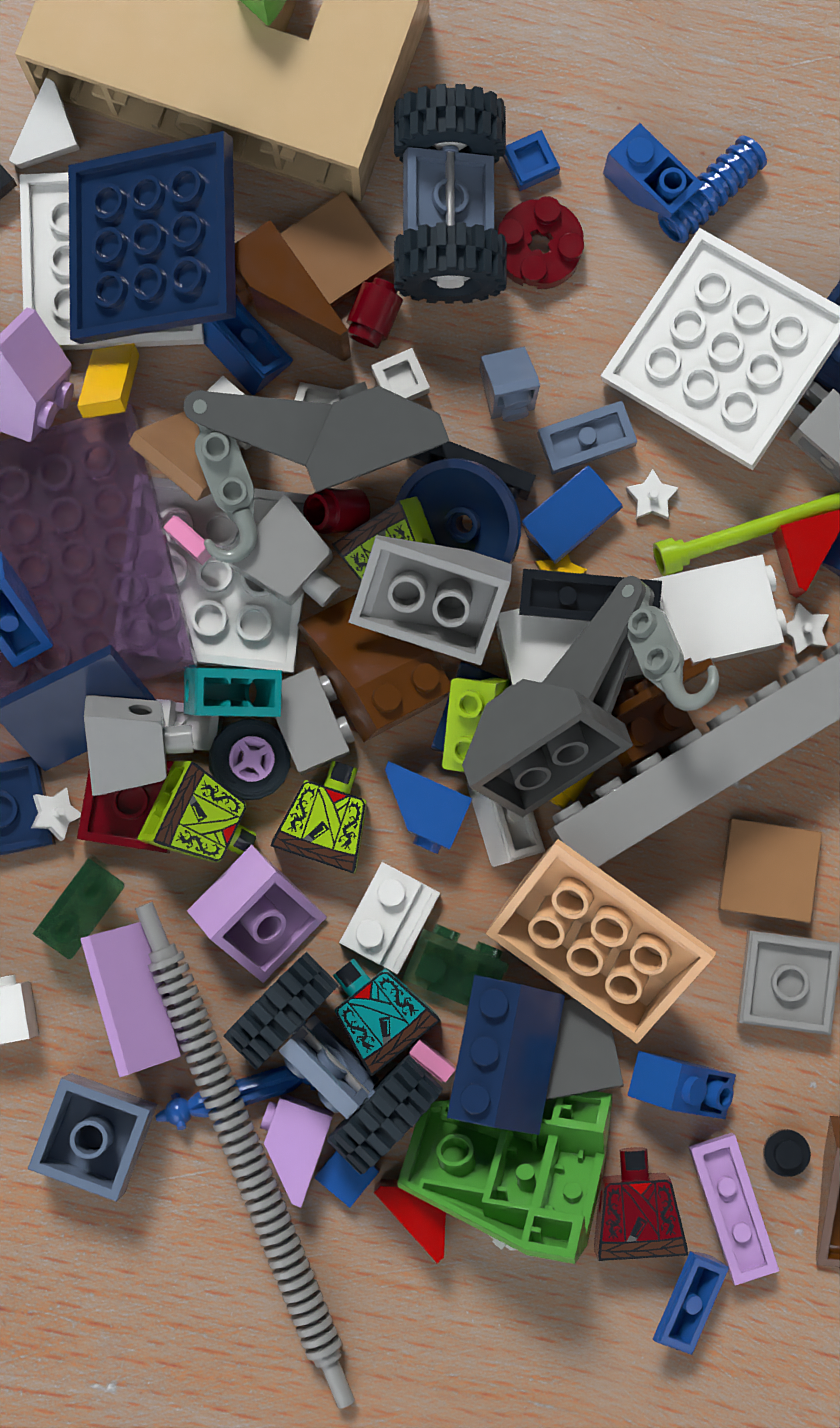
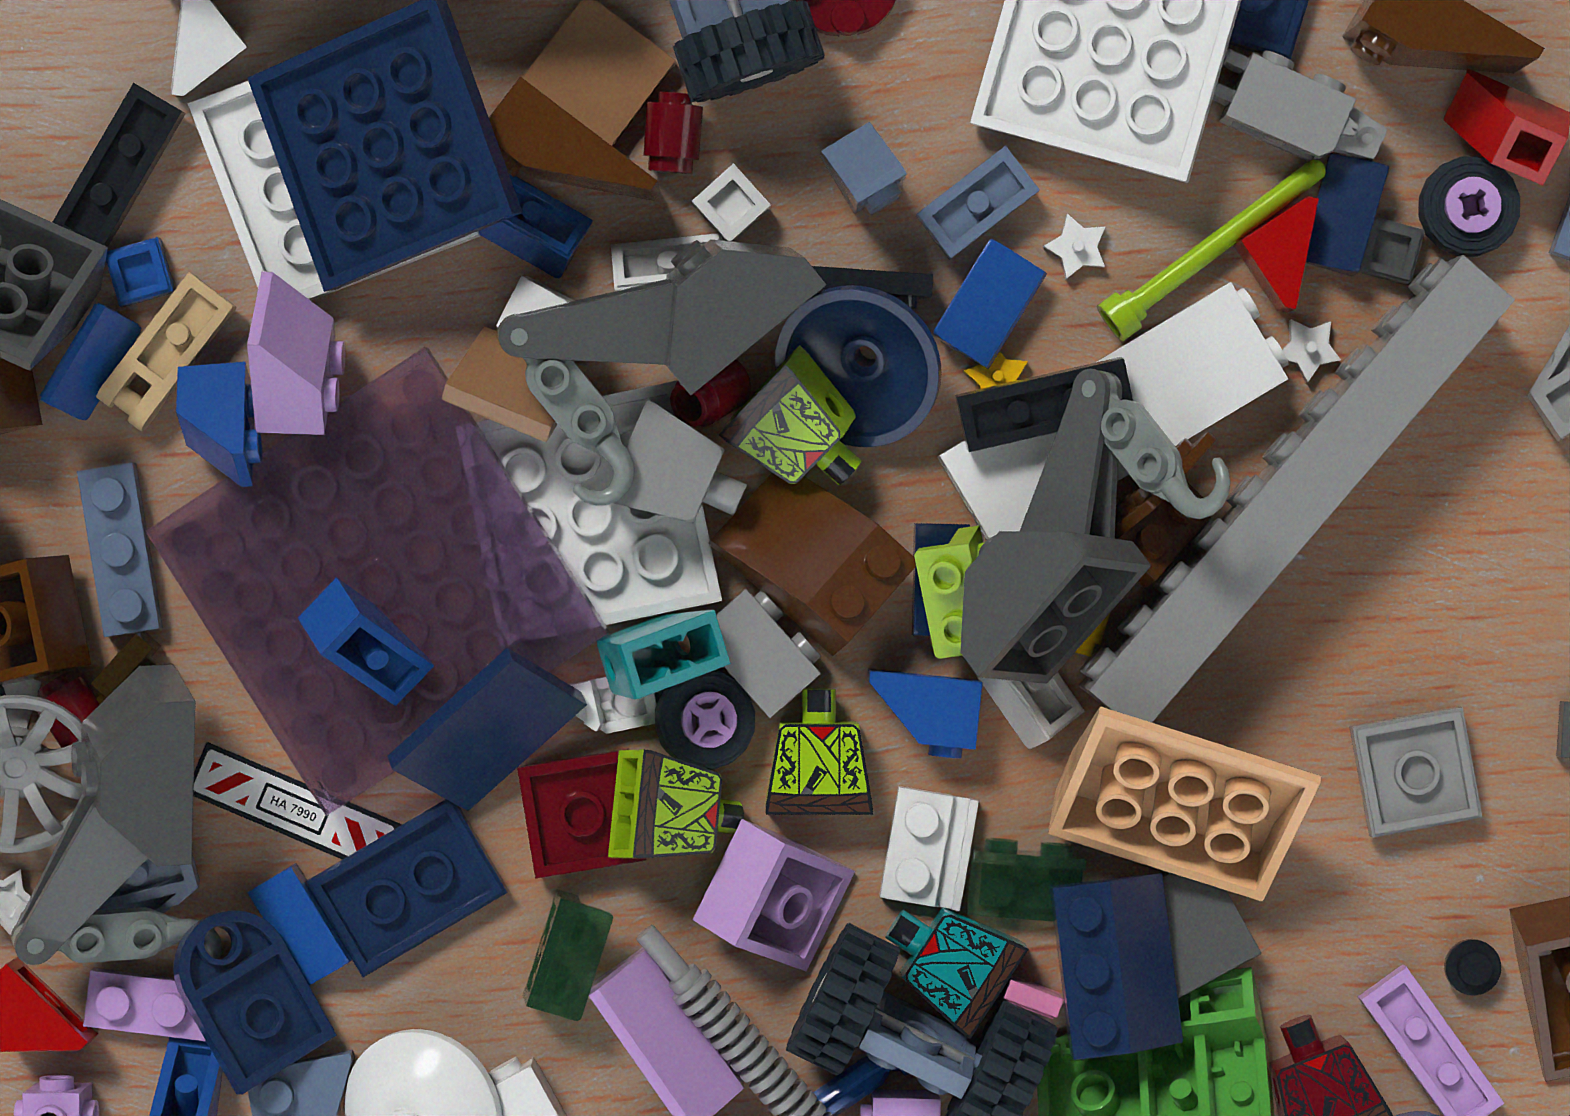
camera: 15 degrees left, 5 degrees up
(55, 813) = (498, 856): white piece -> none
(108, 380) = (385, 324): yellow tile -> none
(129, 742) = (565, 750): light grey torso -> none
(187, 539) = (548, 487): bright pink tile -> none
(432, 596) = (863, 465): light grey slope -> none
(681, 1085) = (1328, 931): blue slope -> none
(769, 870) = (1353, 648): medium nougat tile -> none

